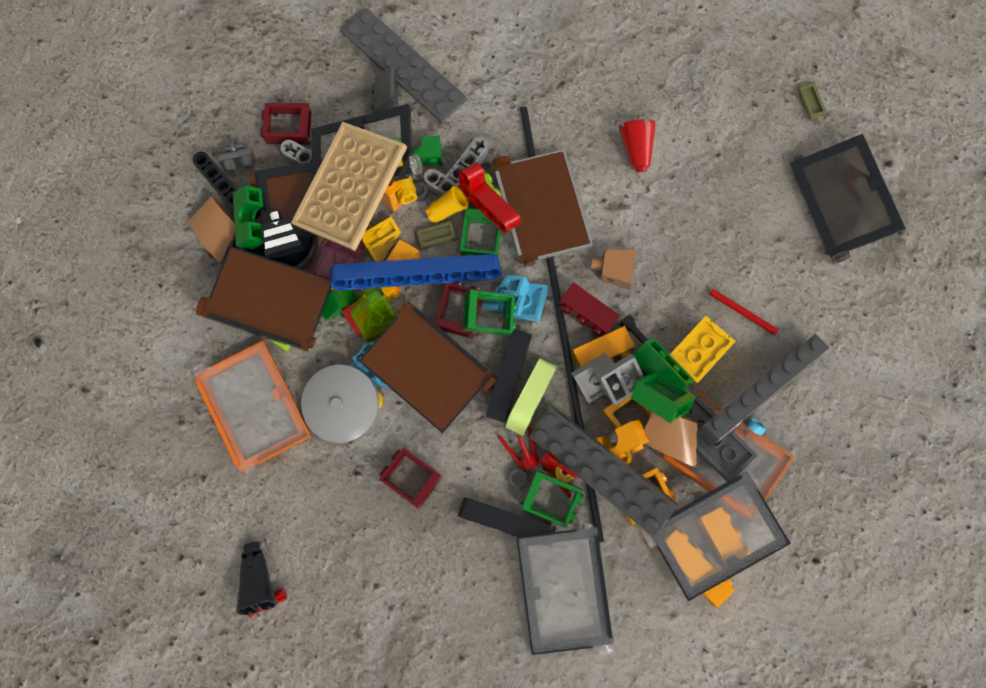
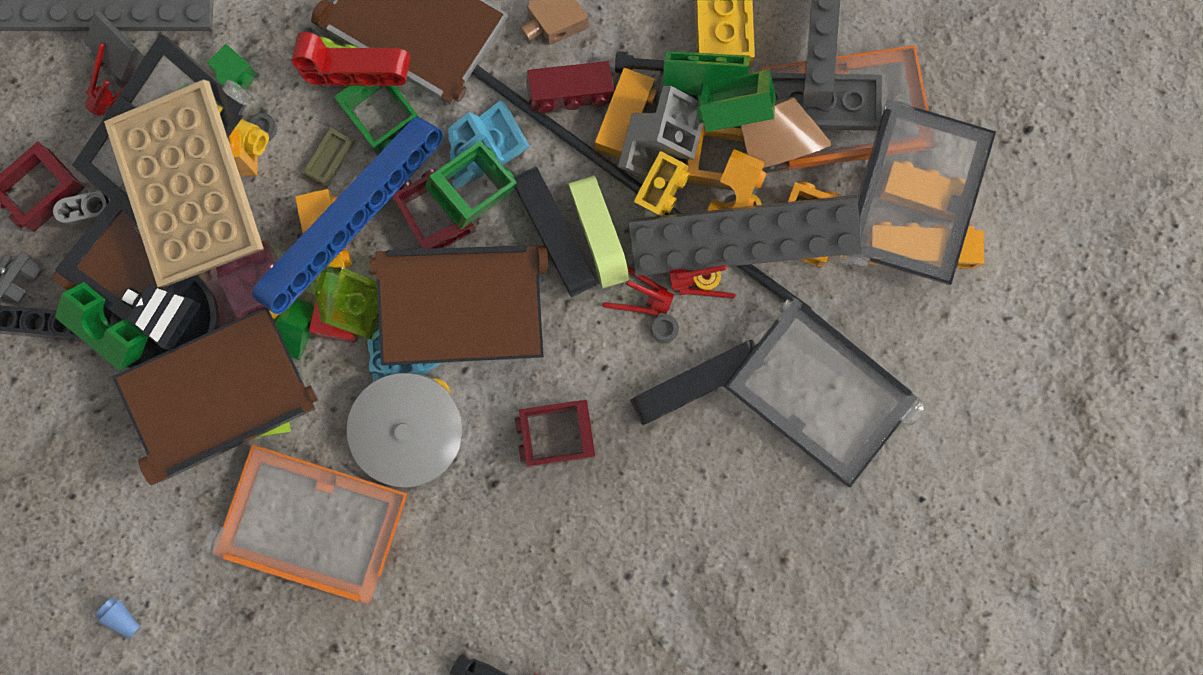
camera: 50 degrees left, 5 degrees up
(122, 363) = (117, 617): none -> medium blue cone
(214, 228) = (71, 376): medium nougat slope -> none
(357, 108) = (99, 97): none -> red plant
(381, 239) = (274, 214): yellow wing -> none
(447, 205) = (310, 112): yellow plant -> none
(448, 180) = (284, 83): light grey beam -> none
(570, 515) = (694, 324): green window -> none
(585, 403) = (662, 183): none -> yellow brick
(756, 426) = (850, 49): medium azure tile -> none

